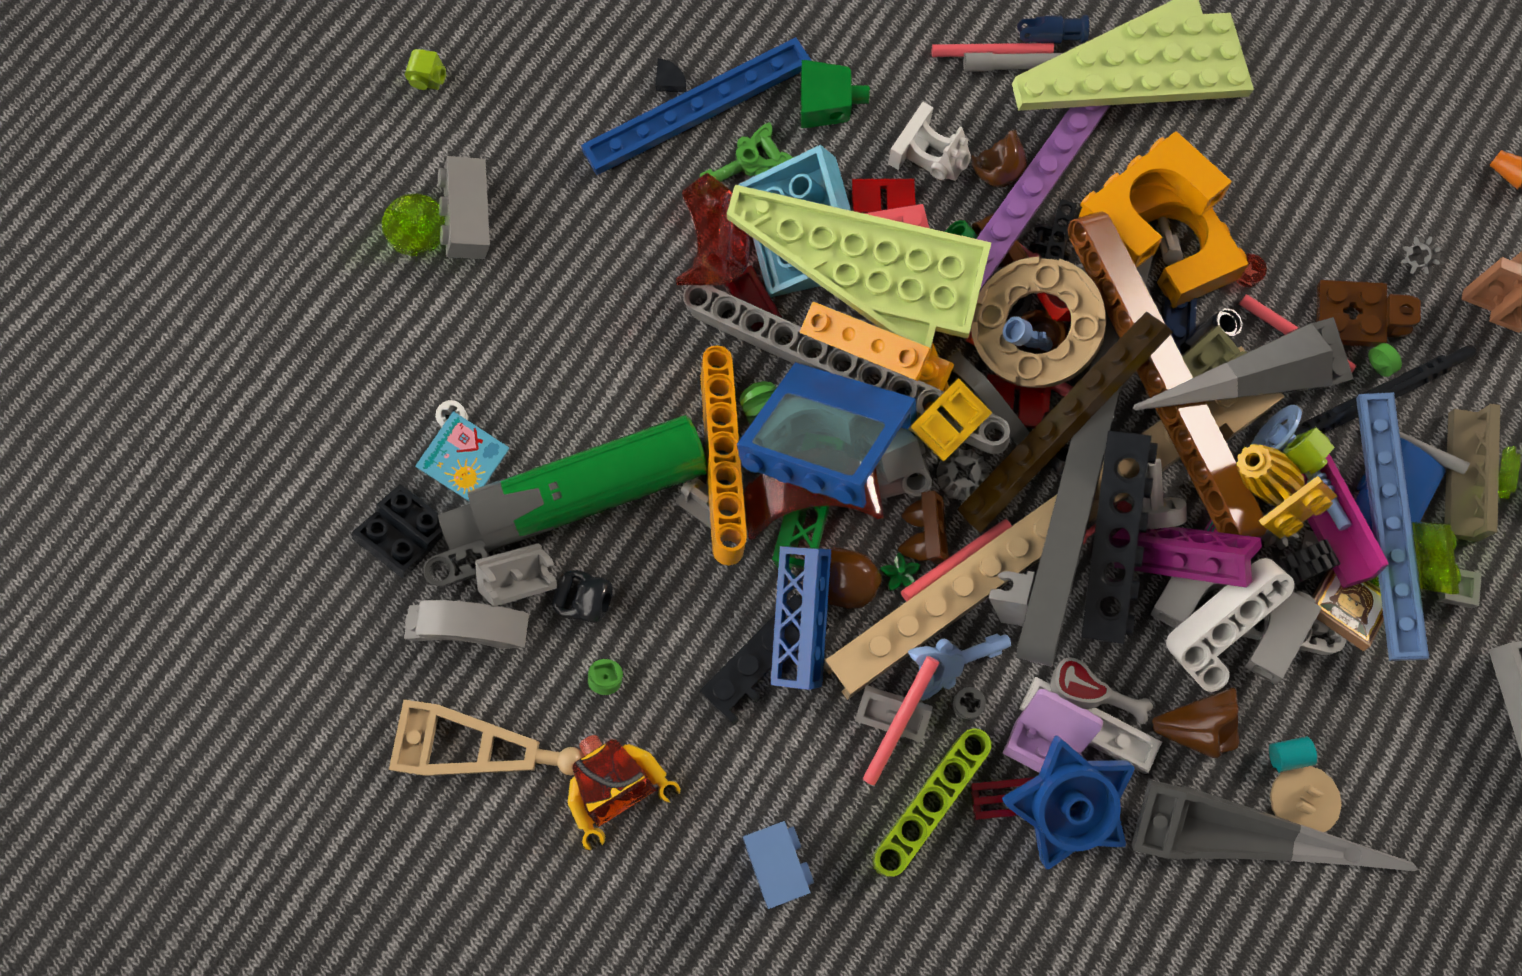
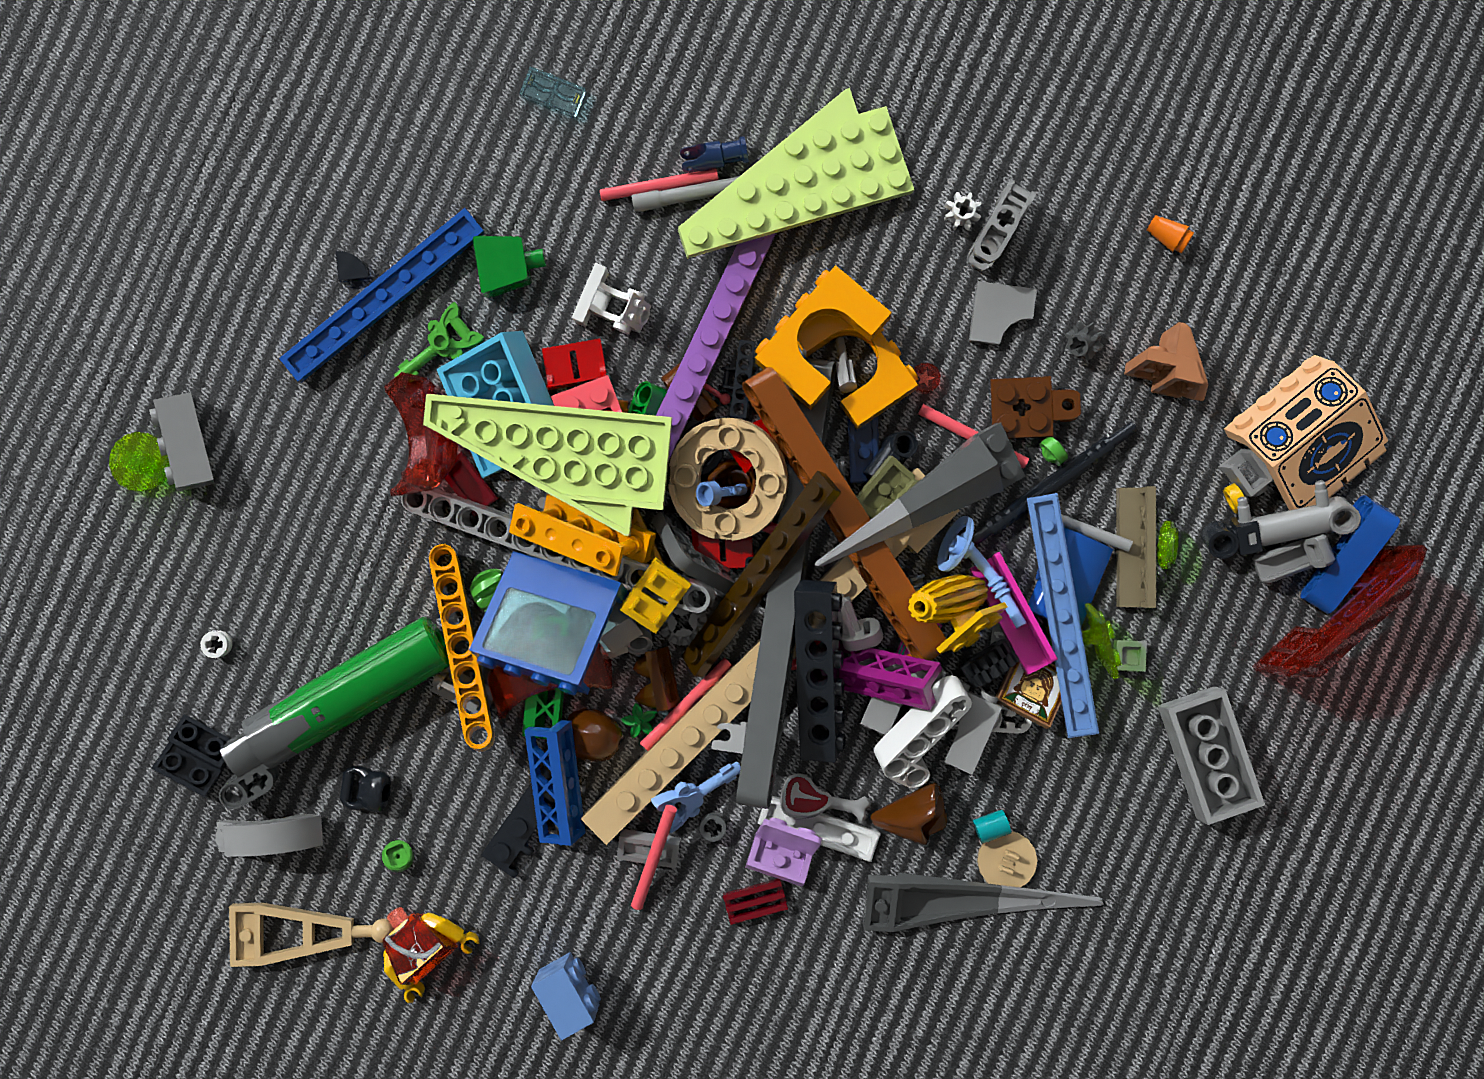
camera: 10 degrees left, 15 degrees up
(425, 70) = (114, 302): lime plate -> none
(462, 456) = (233, 682): medium azure tile -> none
(514, 575) = (300, 787): light grey hinge -> none
(945, 791) = (688, 932): lime beam -> none
(1001, 163) = (678, 310): reddish brown hair -> none
(1072, 803) = (806, 902): blue plate -> none
(1301, 116) = (970, 210): none -> white gear
(1309, 450) = (982, 564): lime plate -> none
(1332, 214) = (998, 308): none -> light grey tile
(1342, 131) = (1000, 225): none -> light grey piece

